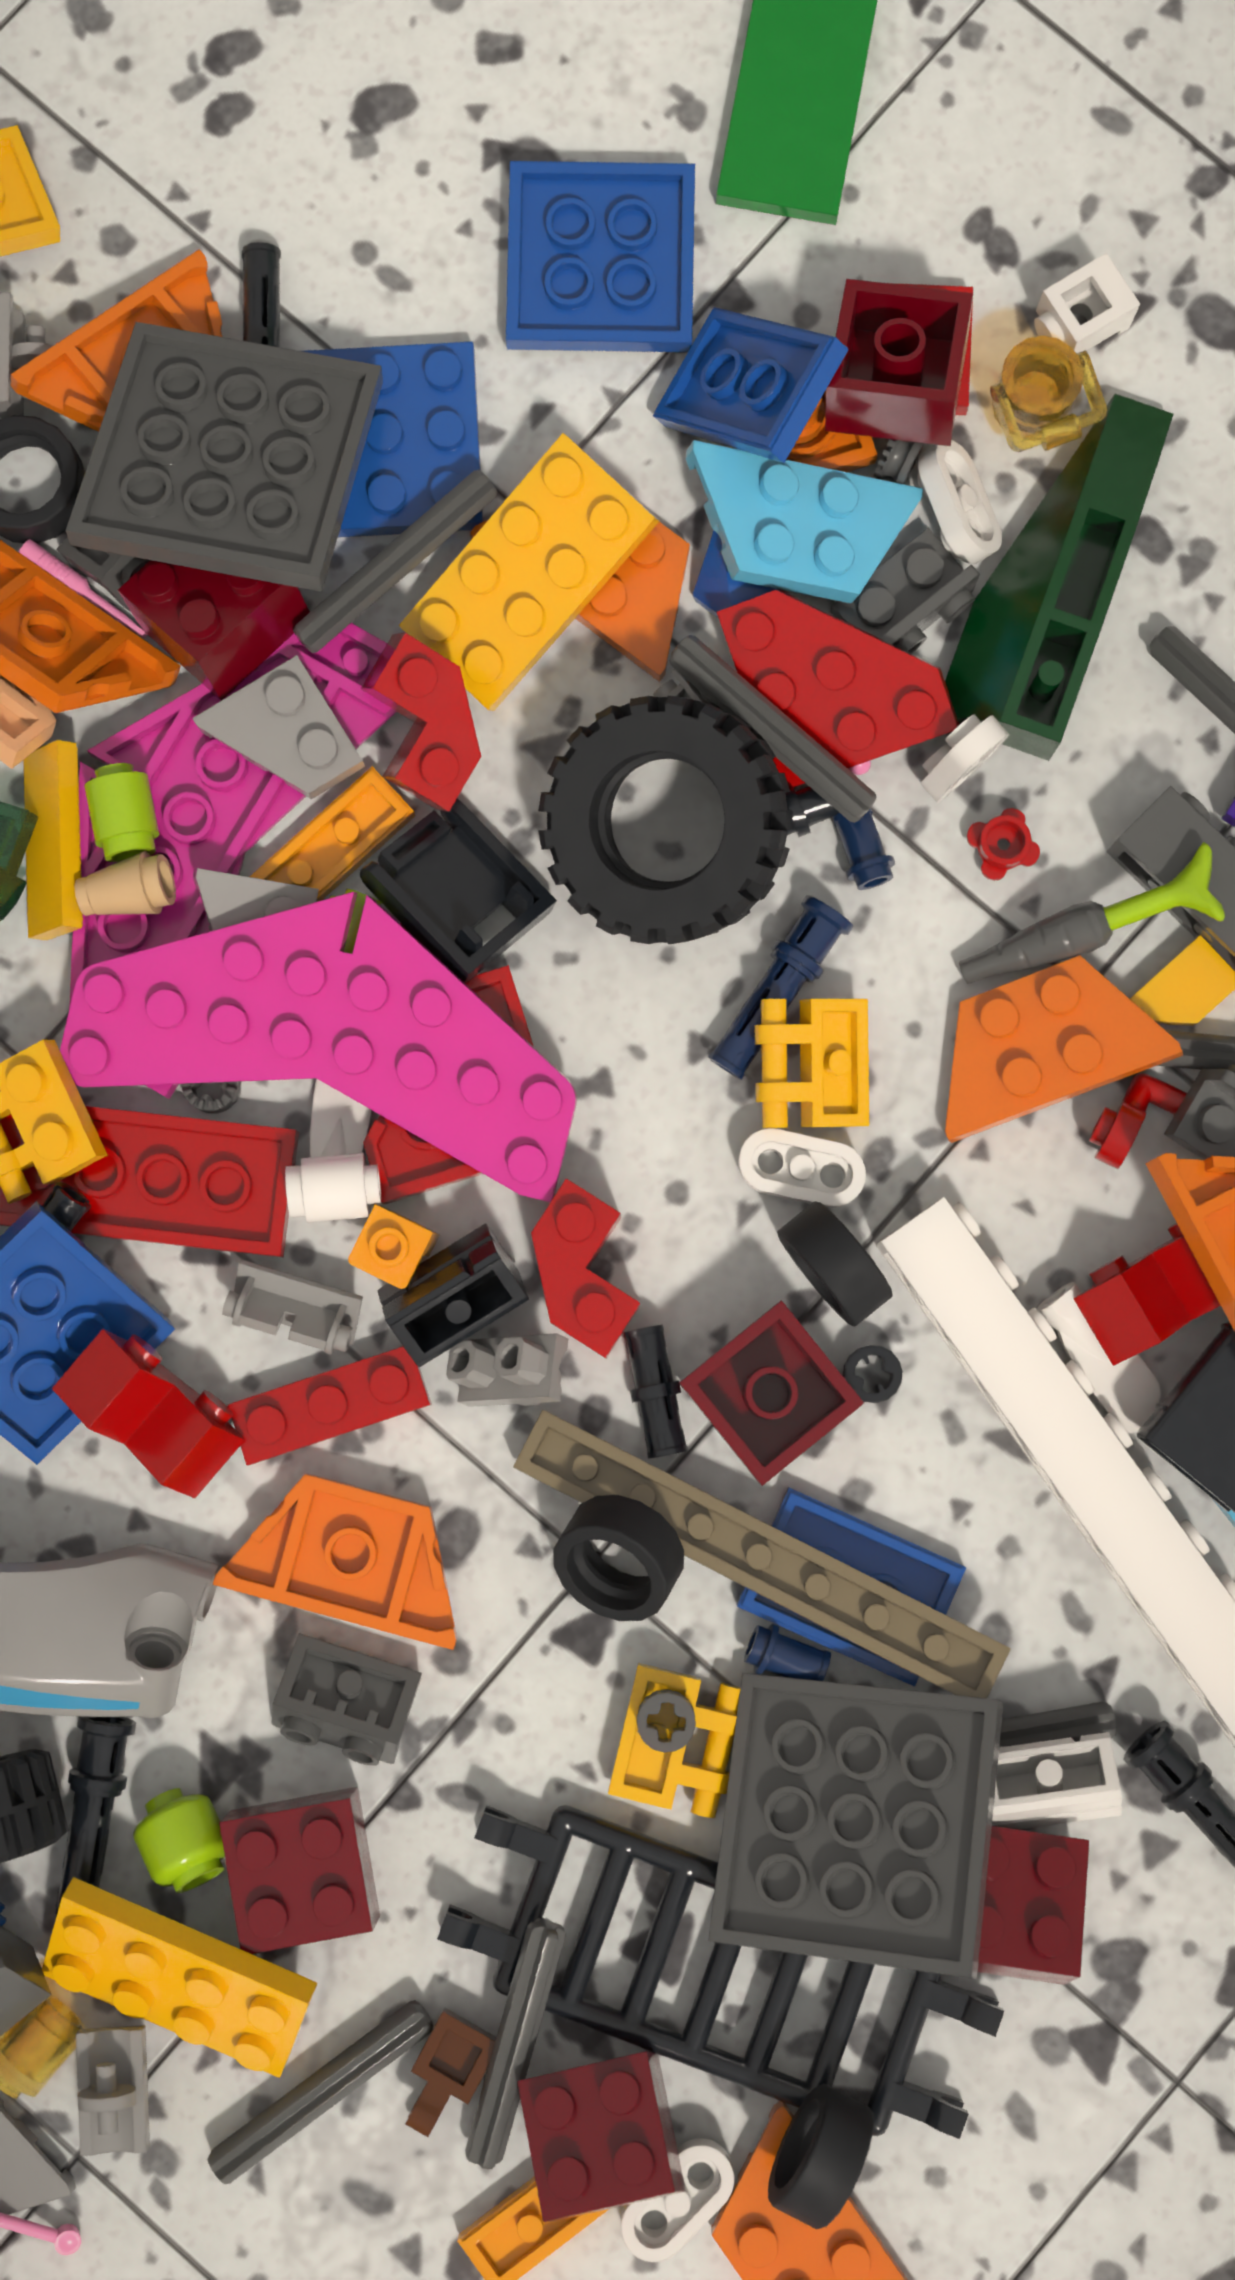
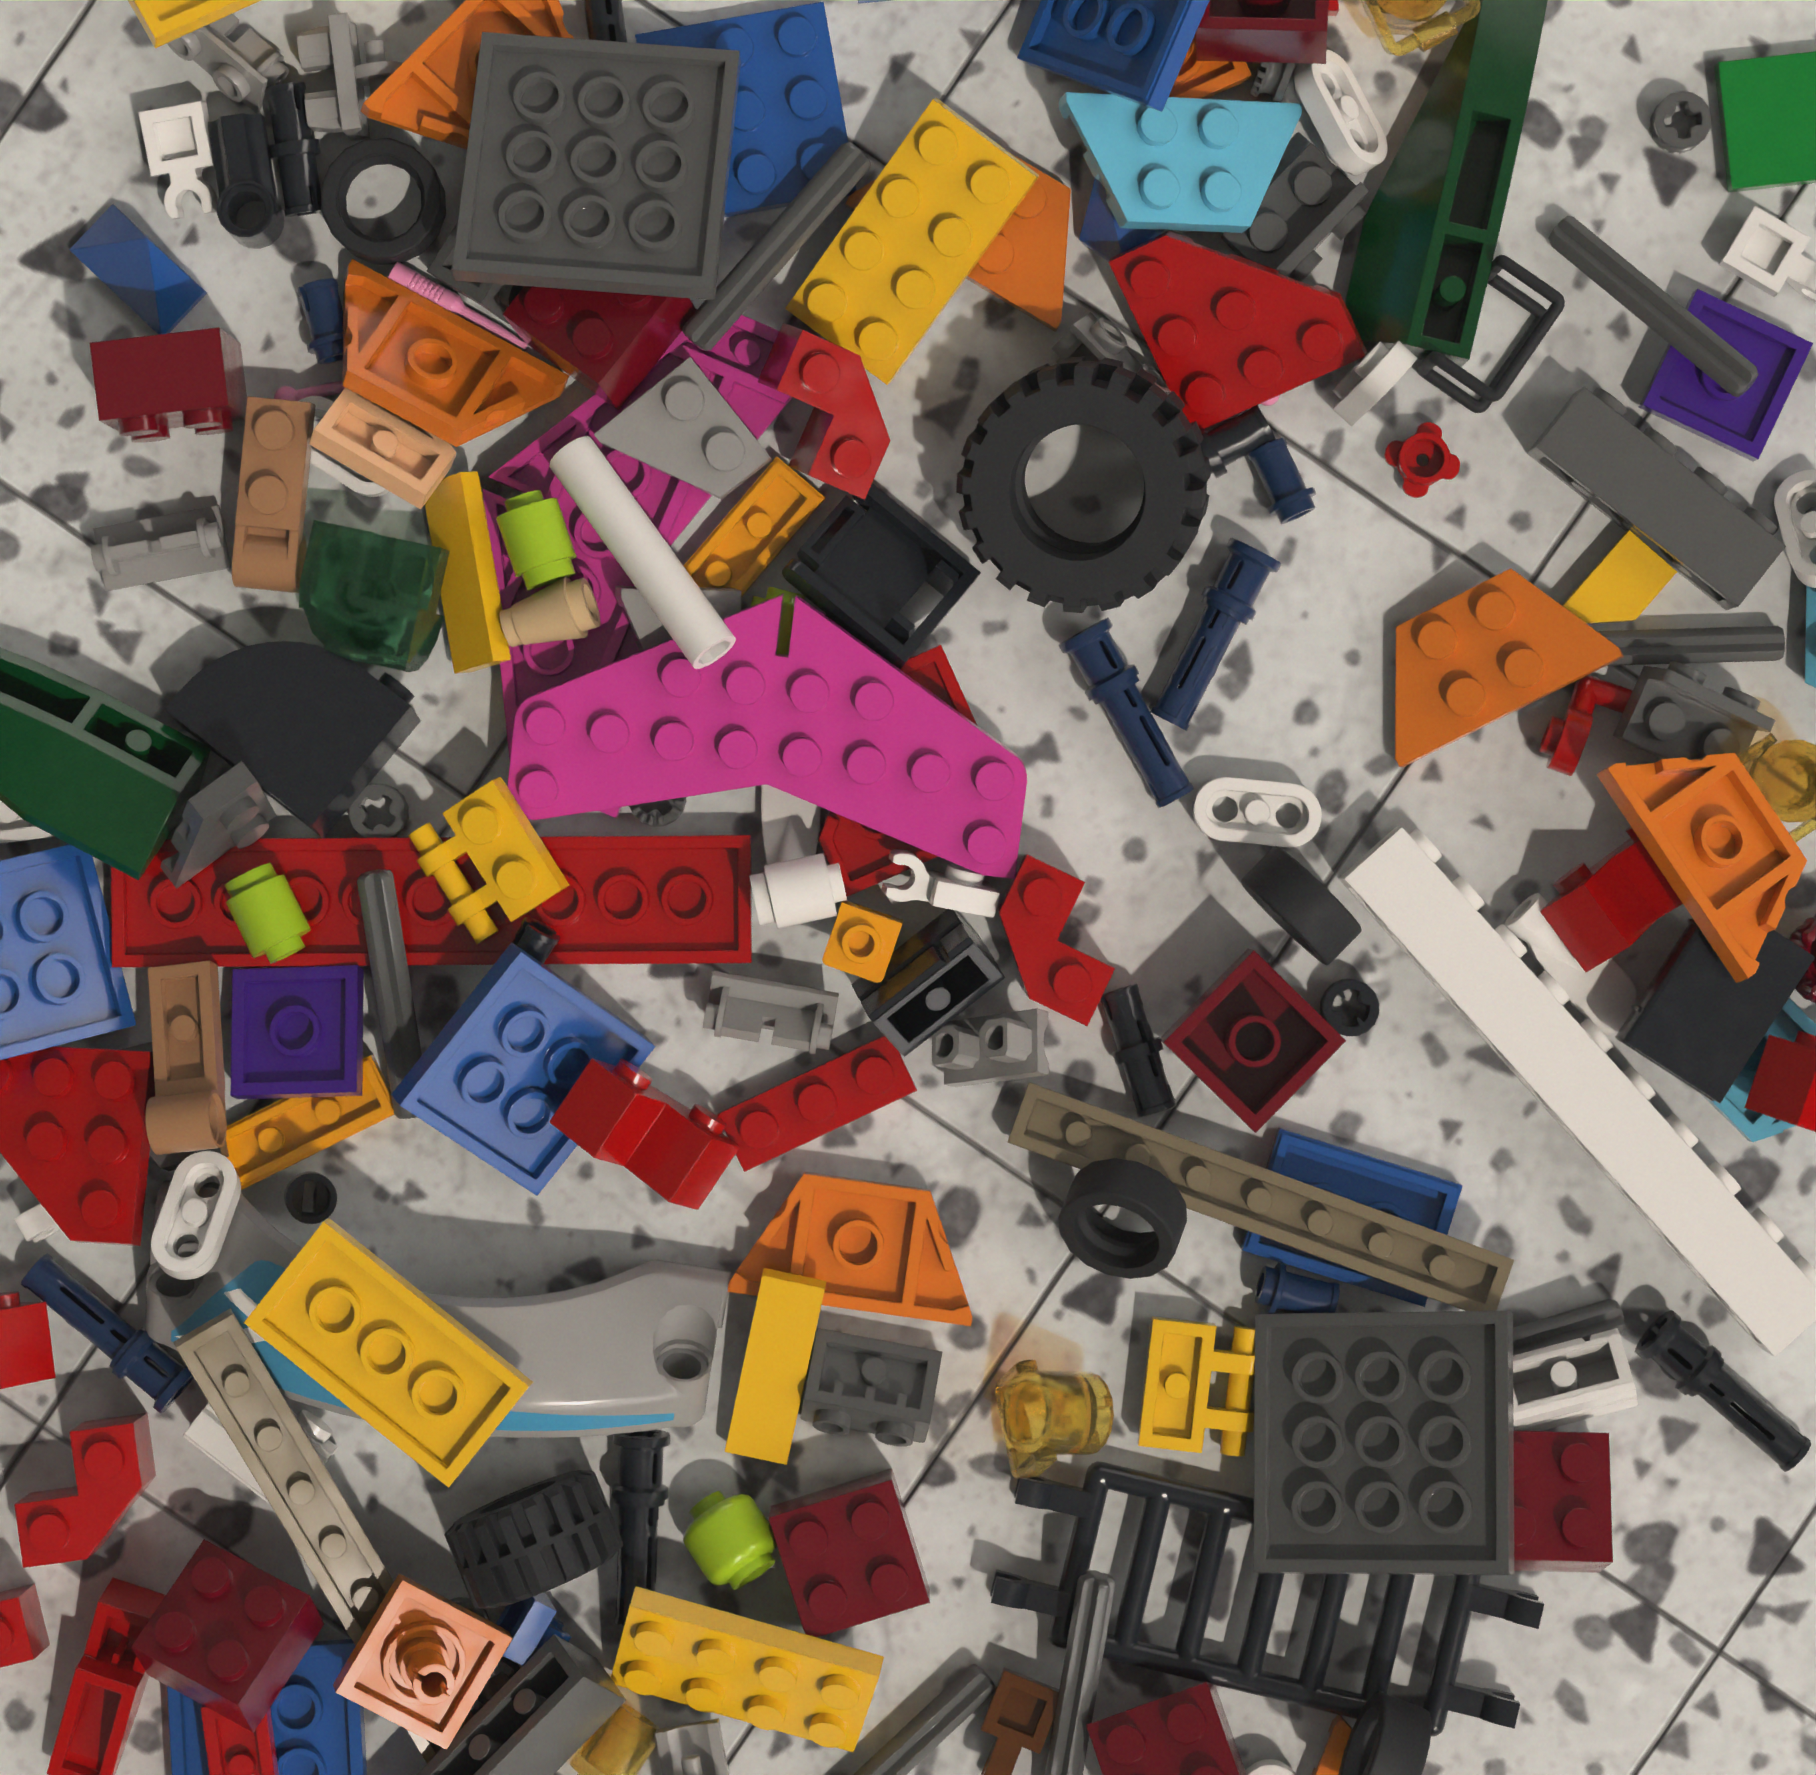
camera: 10 degrees left, 5 degrees up
(222, 835) = (642, 552): none -> white piece
(250, 1666) = (775, 1366): none -> yellow tile
(493, 1207) = (954, 890): none -> white plate
(523, 1752) = (1051, 1415): none -> clear yellow piece
(649, 1733) = (1172, 1356): dark grey bush -> none
(674, 1026) = (1114, 687): none -> dark blue pin
(769, 723) = (1178, 374): dark grey axle -> none
(832, 1063) = (1275, 705): yellow plate -> none
(1084, 777) = (1519, 355): none -> black piece
(1090, 924) = (1518, 536): piece -> none

